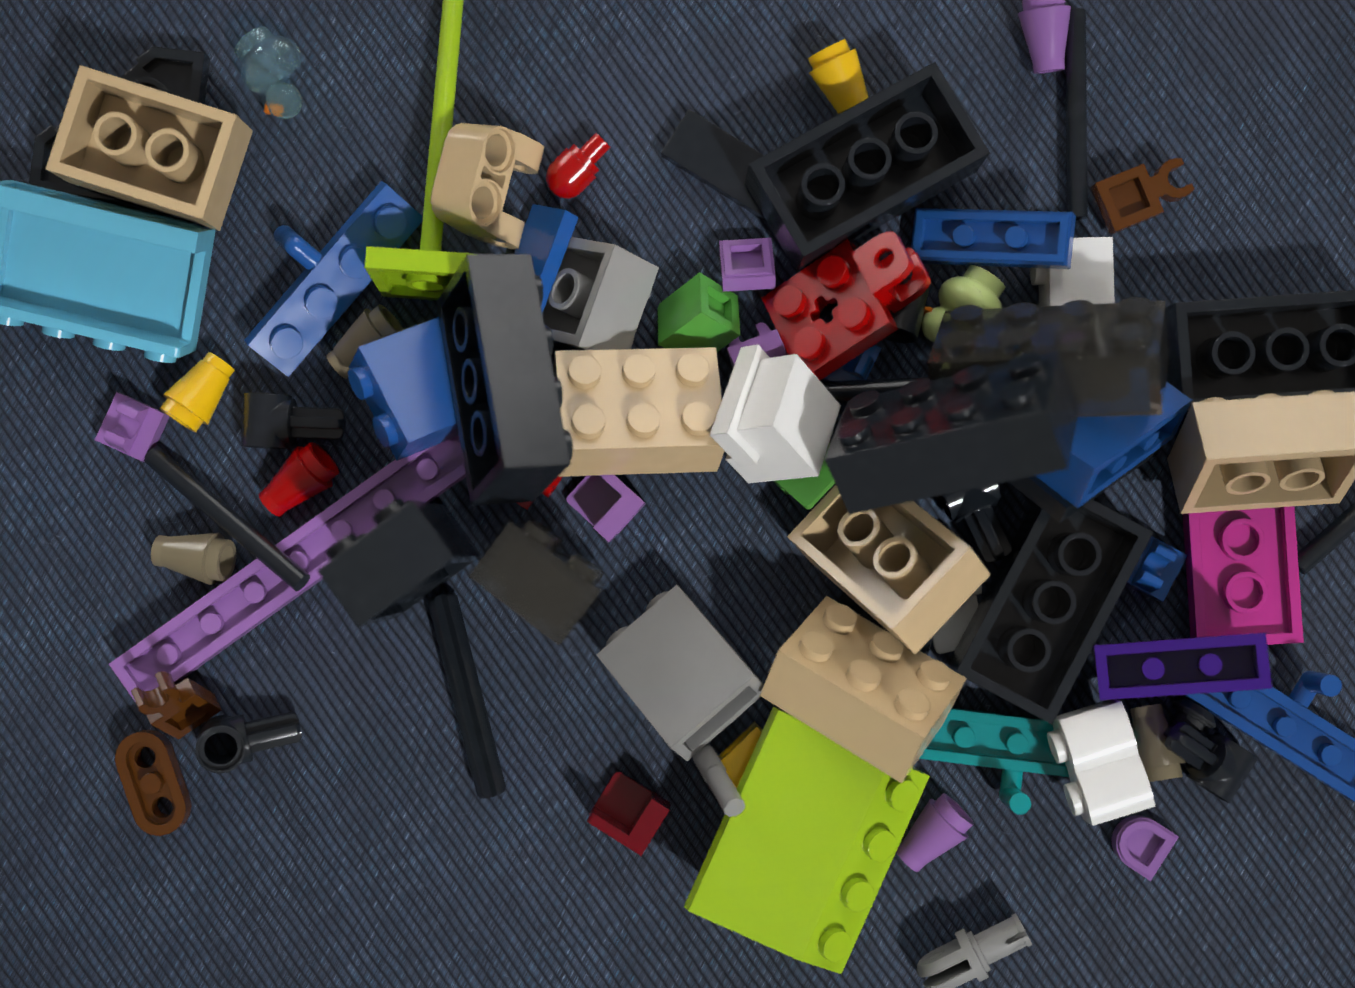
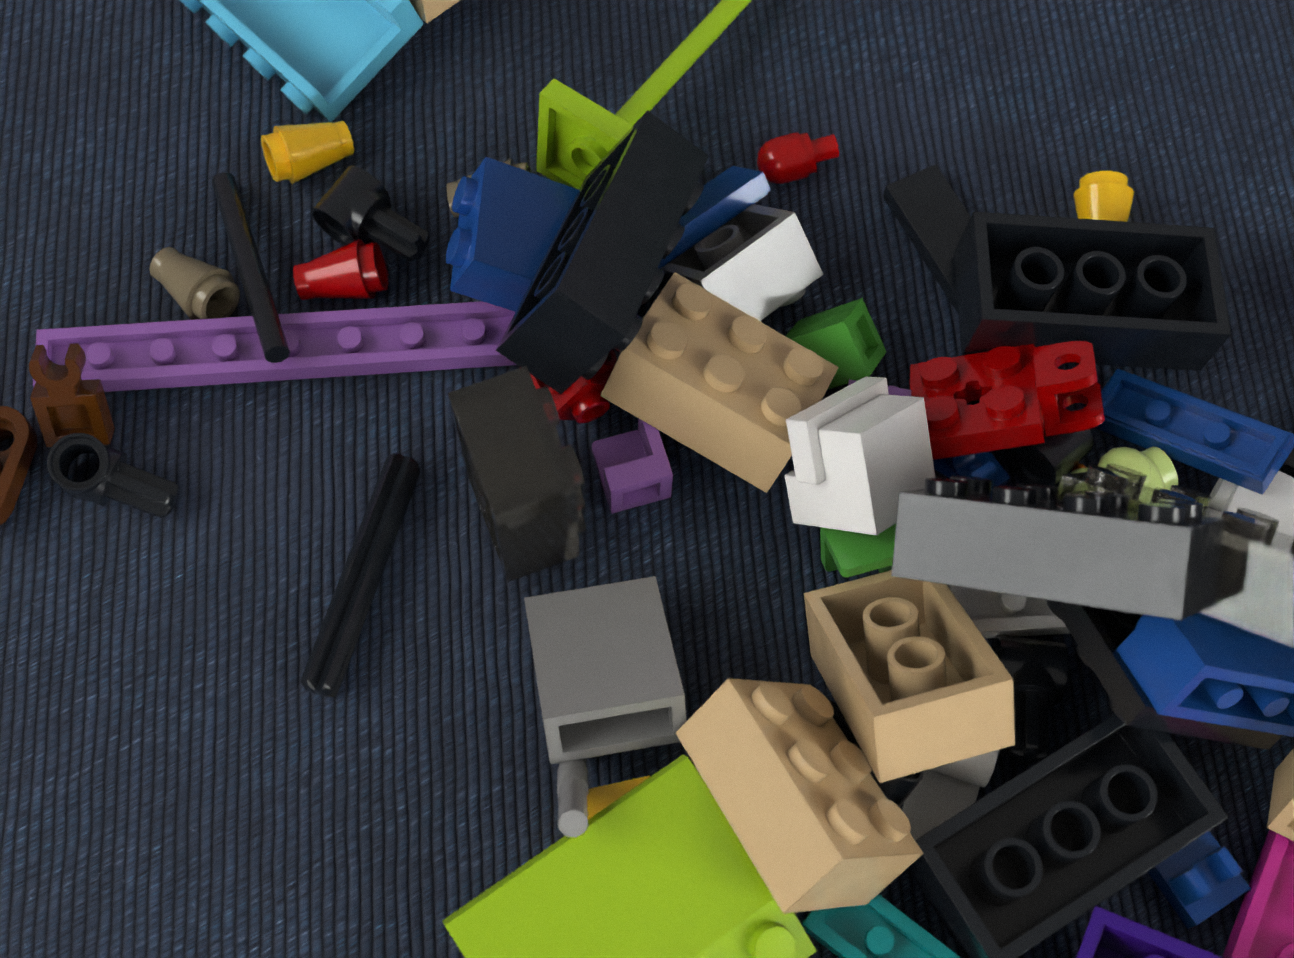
camera: 25 degrees right, 20 degrees down
(131, 426) = (223, 146): medium lavender tile -> none
(330, 278) = (482, 127): blue plate -> none
(398, 561) = (383, 357): black brick -> none
(476, 179) = (705, 87): tan piece -> none
(629, 812) = (450, 799): dark red panel -> none
(747, 264) = (913, 324): medium lavender tile -> none

